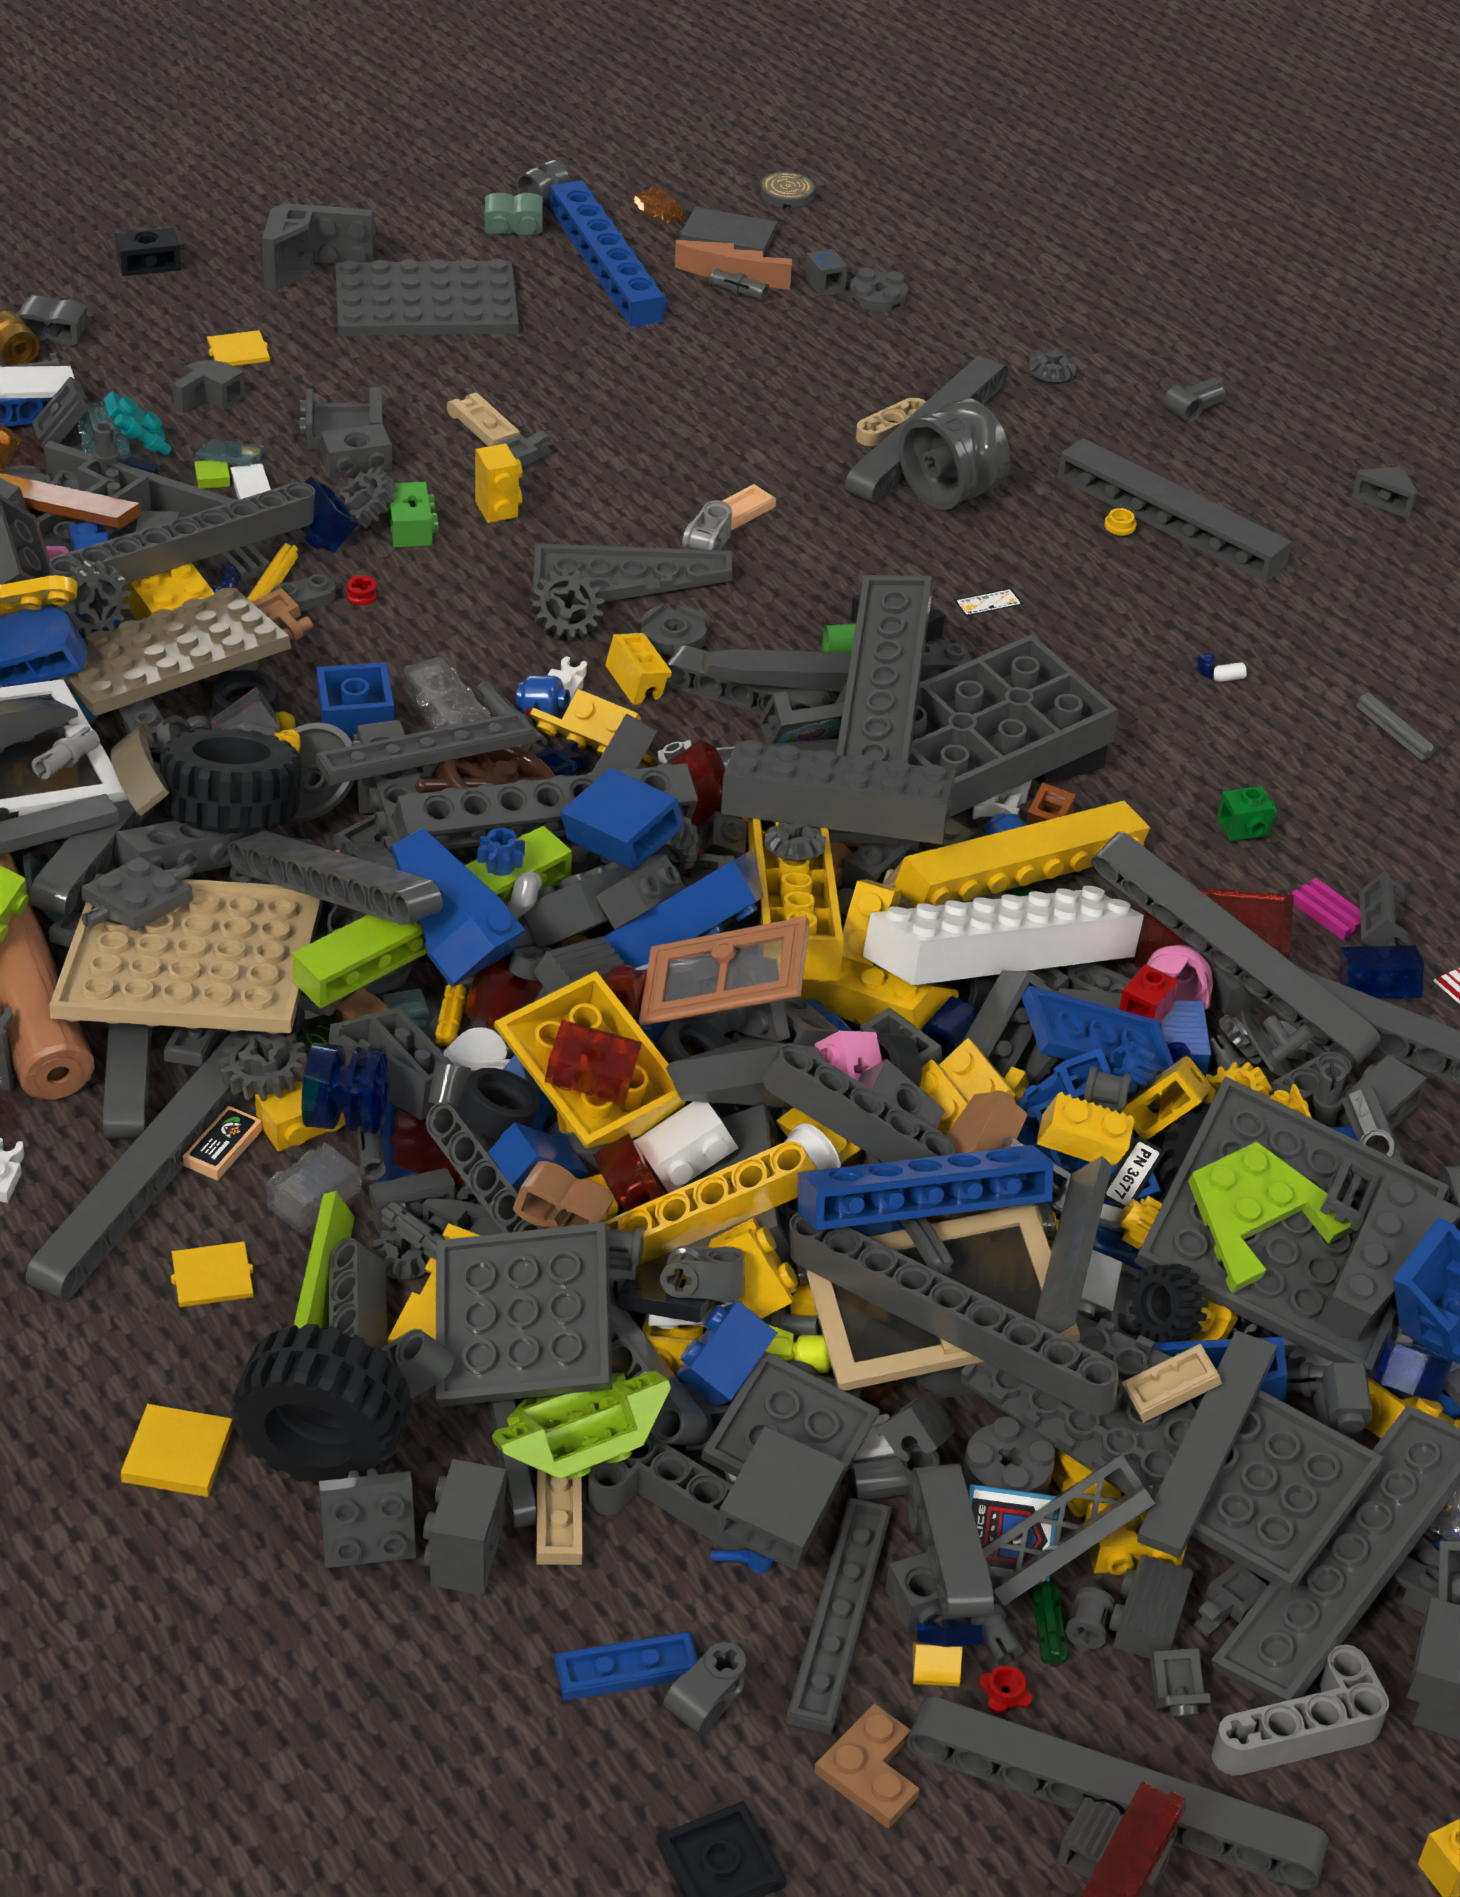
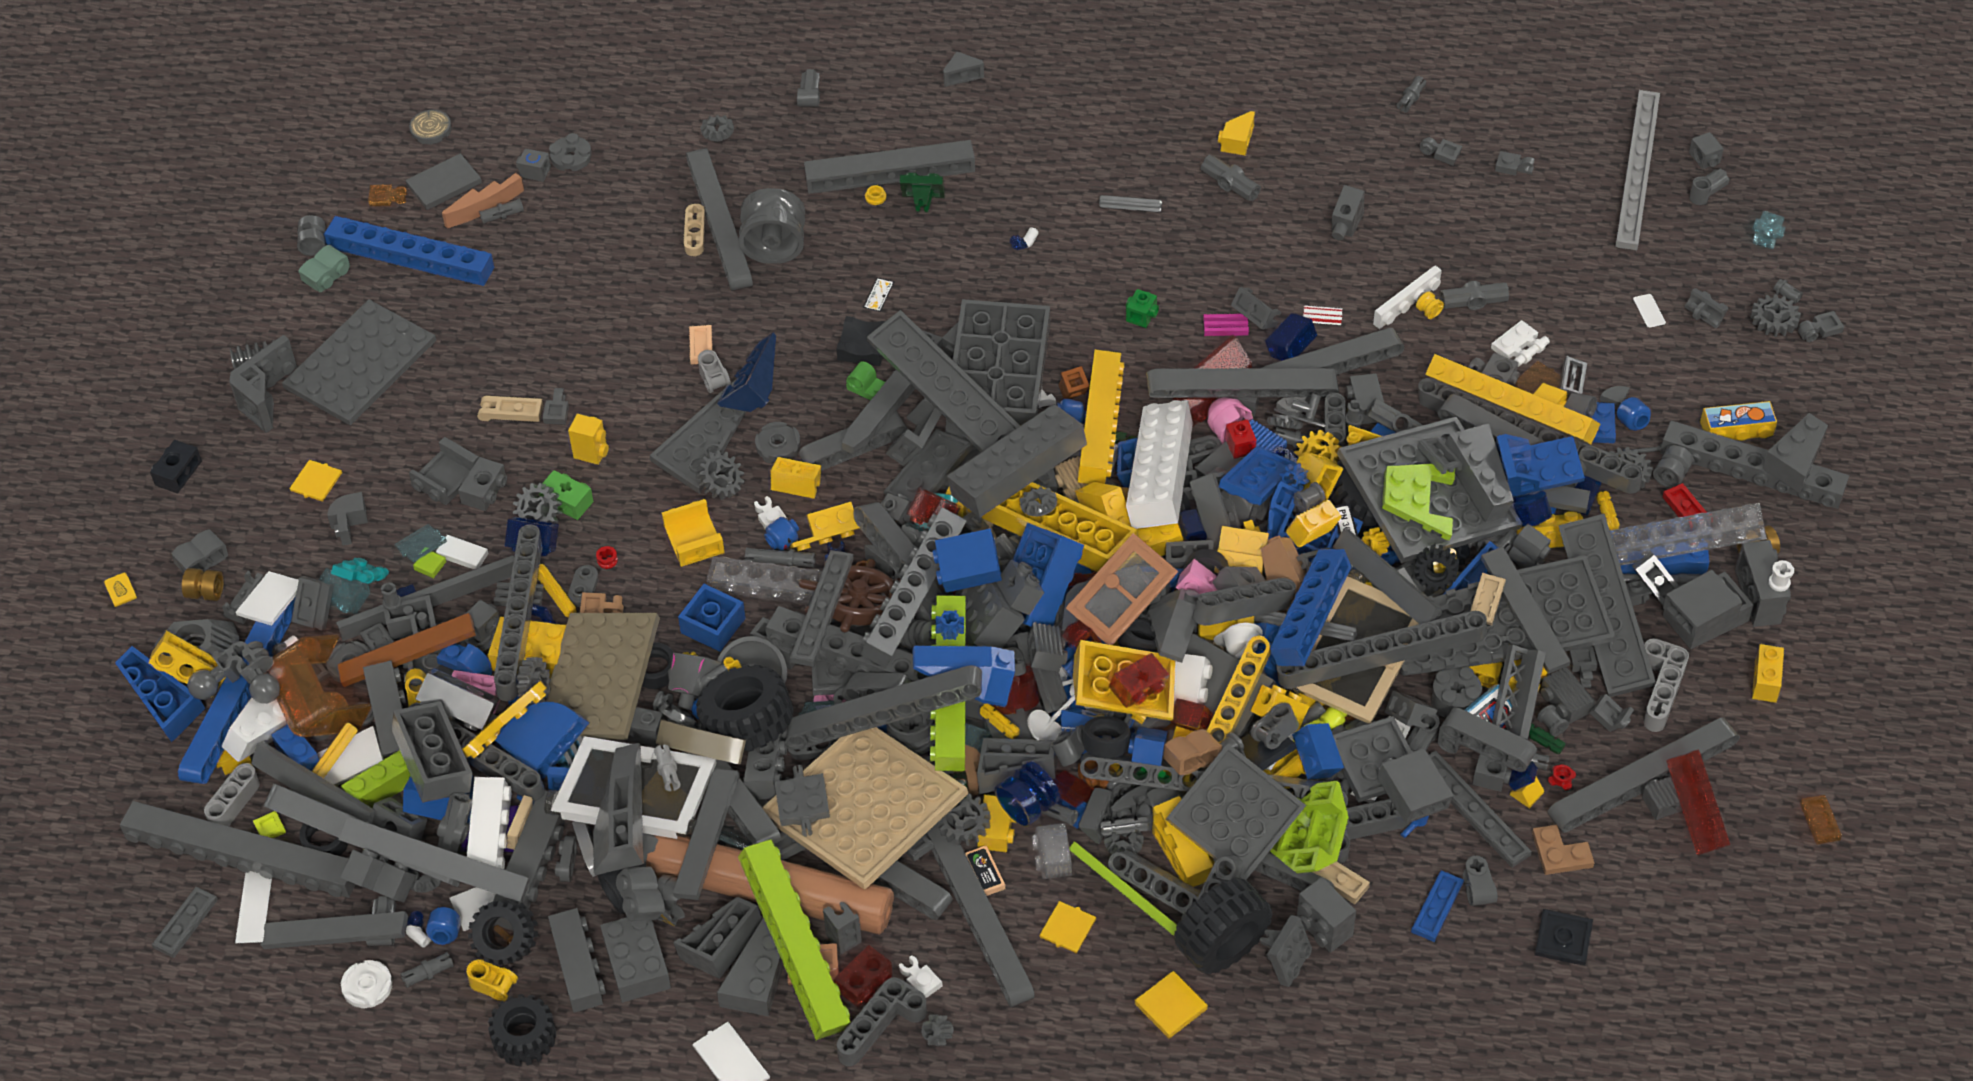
camera: 45 degrees left, 10 degrees up
(470, 634) = (692, 533): none -> yellow panel
(524, 893) = (975, 633): light grey arm -> none
(715, 555) = (753, 380): none -> dark blue wedge
(1169, 543) = (922, 189): none -> dark green plate

